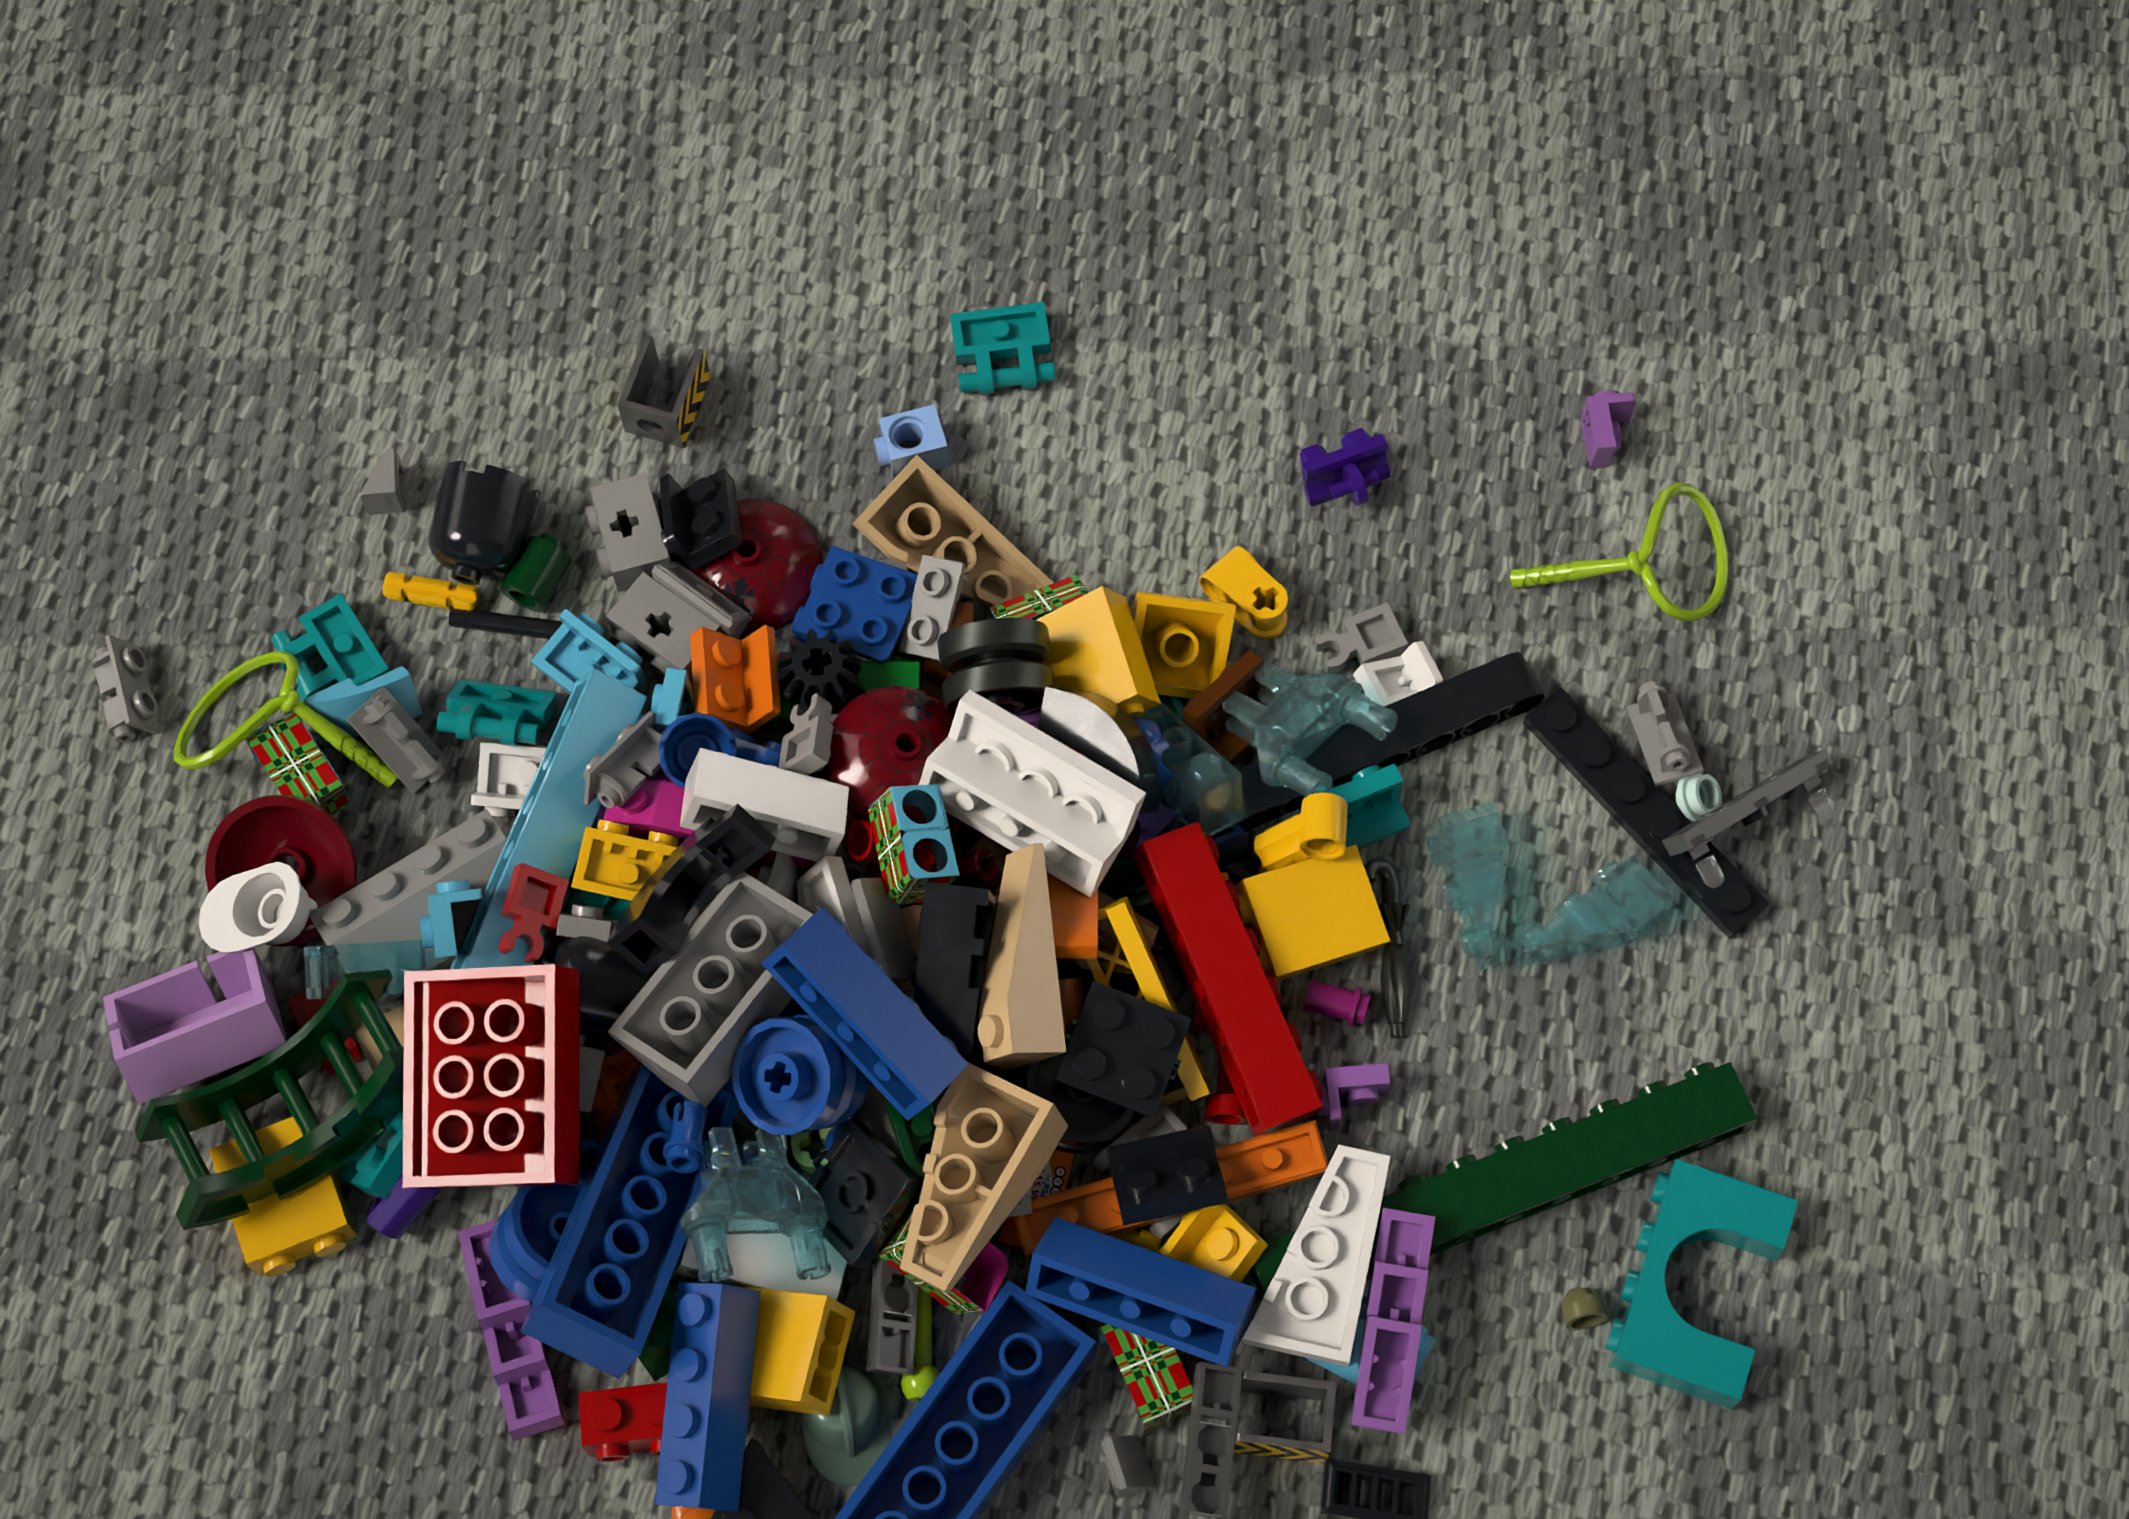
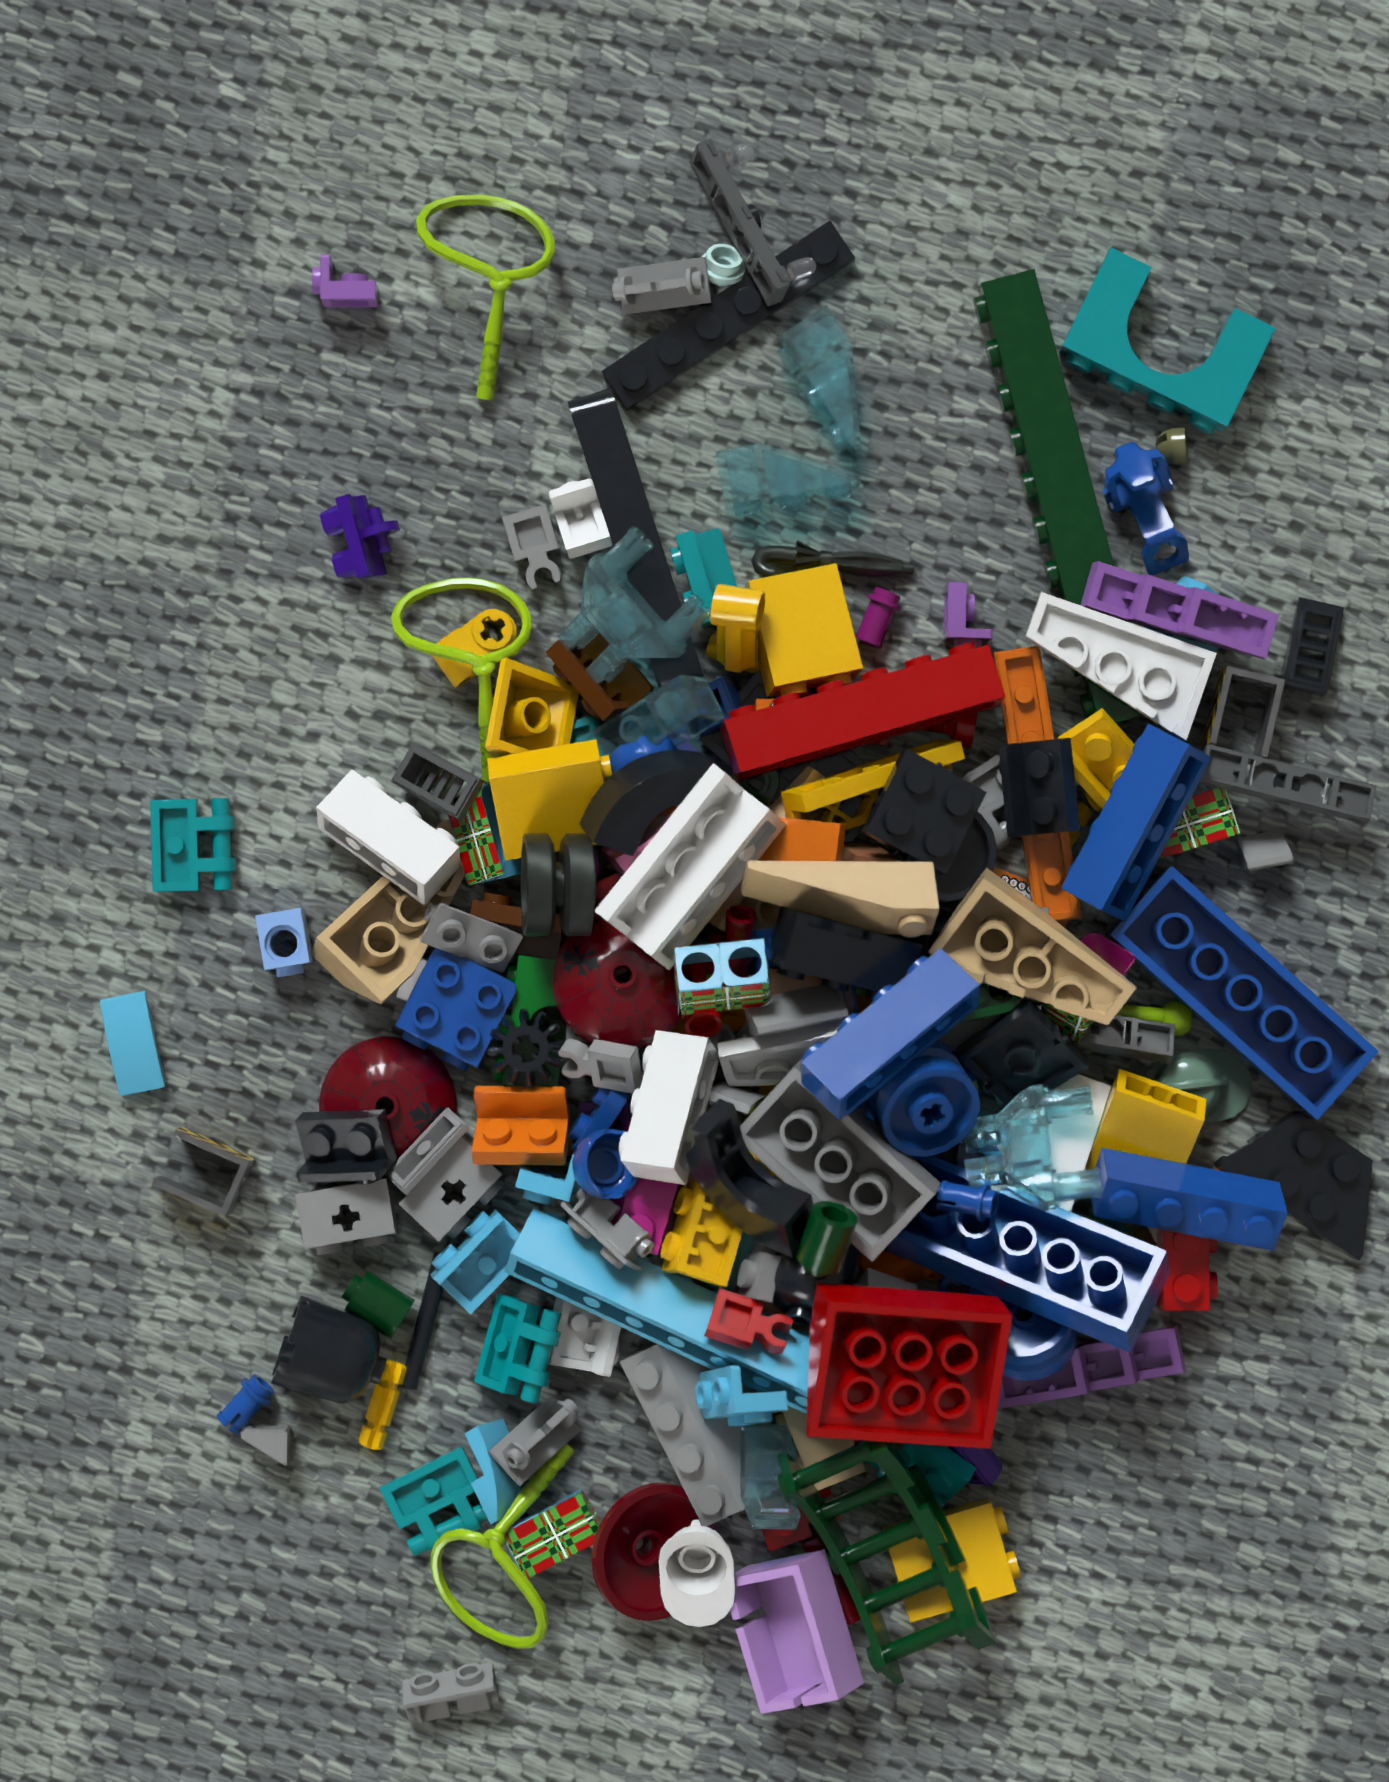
camera: 85 degrees left, 20 degrees up
(424, 459) = (246, 1403): none -> blue pin
(629, 972) = (826, 1238): none -> dark green brick
(793, 313) = (132, 1043): none -> medium azure slope
(1032, 523) = (388, 836): none -> white brick
(1097, 560) = (413, 770): none -> dark grey slope
(1225, 588) = (481, 665): none -> lime piece
(1527, 1270) = (1136, 484): none -> blue piece

